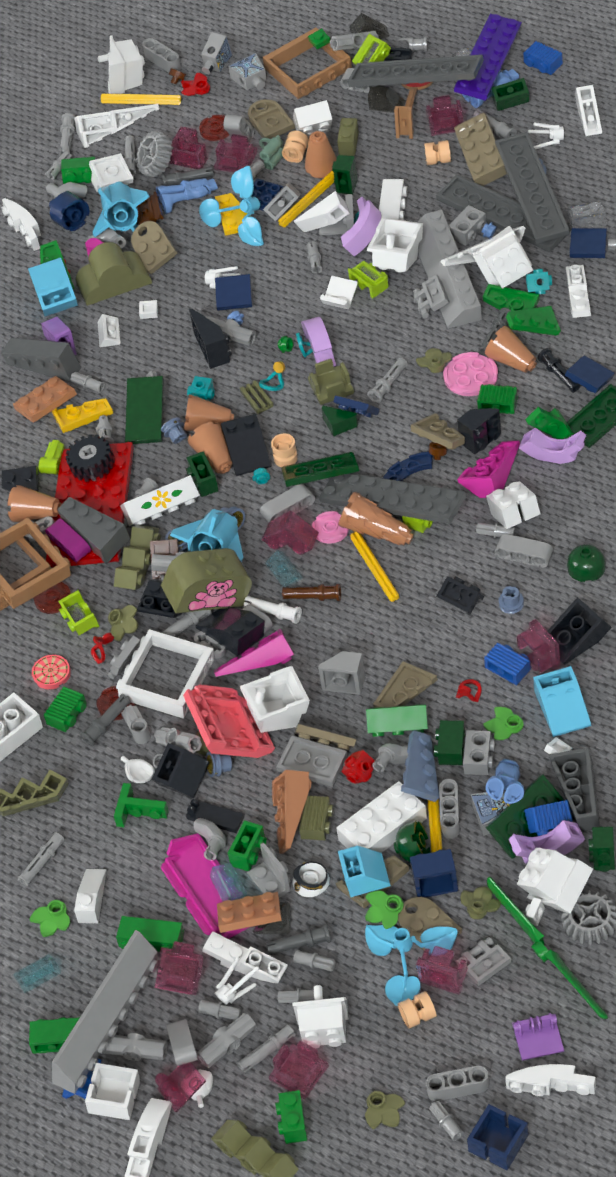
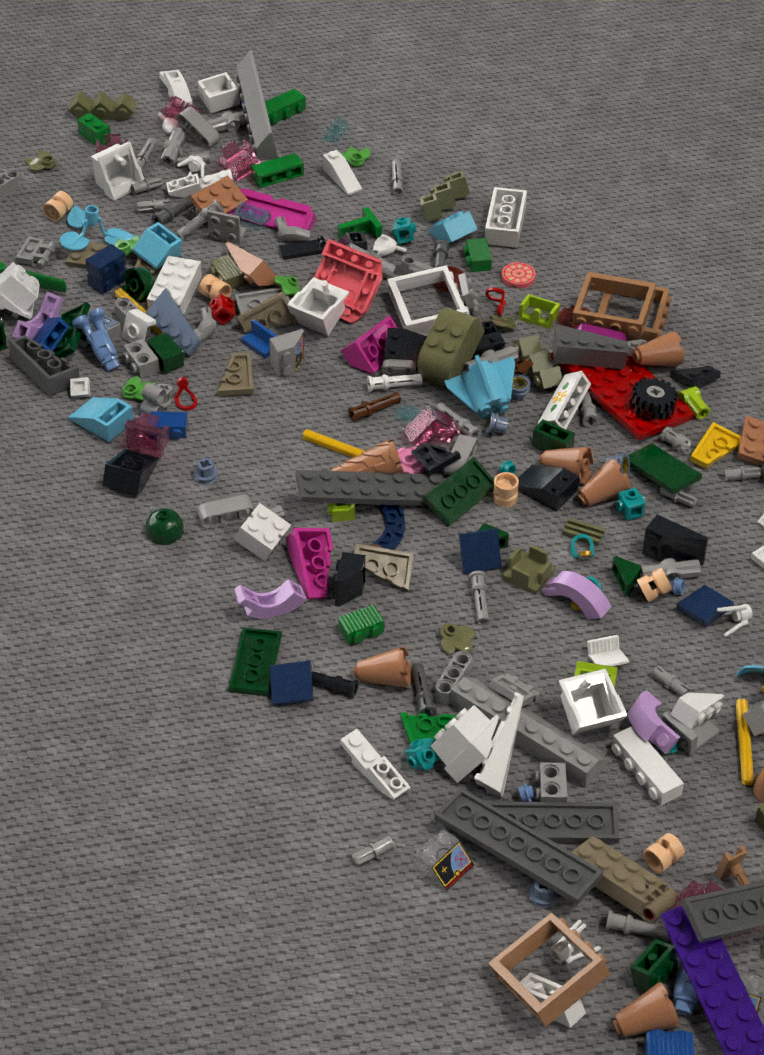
camera: 135 degrees right, 5 degrees down
(56, 753) = (454, 227): none -> medium azure slope
(104, 765) = (404, 230): none -> teal brick
(246, 846) = (257, 233): green brick -> none
(255, 317) = (661, 582): none -> light nougat wheel
(256, 533) = (461, 422): none -> light grey pin
(264, 340) = (626, 574): none -> dark green slope
(272, 765) = (288, 284): none -> bright green plate
(281, 886) = (202, 218): none -> light grey pin
(285, 344) = (607, 585): green plate -> none
(310, 879) = (198, 242): white piece -> none
(315, 501) = (434, 457): none -> black wing
(344, 798) = (212, 286): none -> light nougat wheel
(345, 174) = (726, 768): dark green brick -> none
(352, 718) = (258, 339): none -> blue panel
(396, 719) = (221, 348): brick -> none
(436, 970) = (54, 221): clear pink panel -> none
(454, 782) = (136, 325): none -> white piece
(459, 595) = (251, 458): black bracket -> none
(465, 327) = (457, 669): none -> light grey beam
(469, 372) = (417, 636): bright pink tile -> none
(479, 902) = (70, 278): olive plate -> none
(499, 689) = (155, 397): none -> light grey piece
(534, 320) = (387, 711): green wing -> none
(540, 74) = (647, 1013): none -> nougat cone
(550, 423) = (286, 613): green bracket -> none
(578, 135) = (566, 994): none -> medium nougat window
(588, 242) = (410, 829): dark blue tile -> none

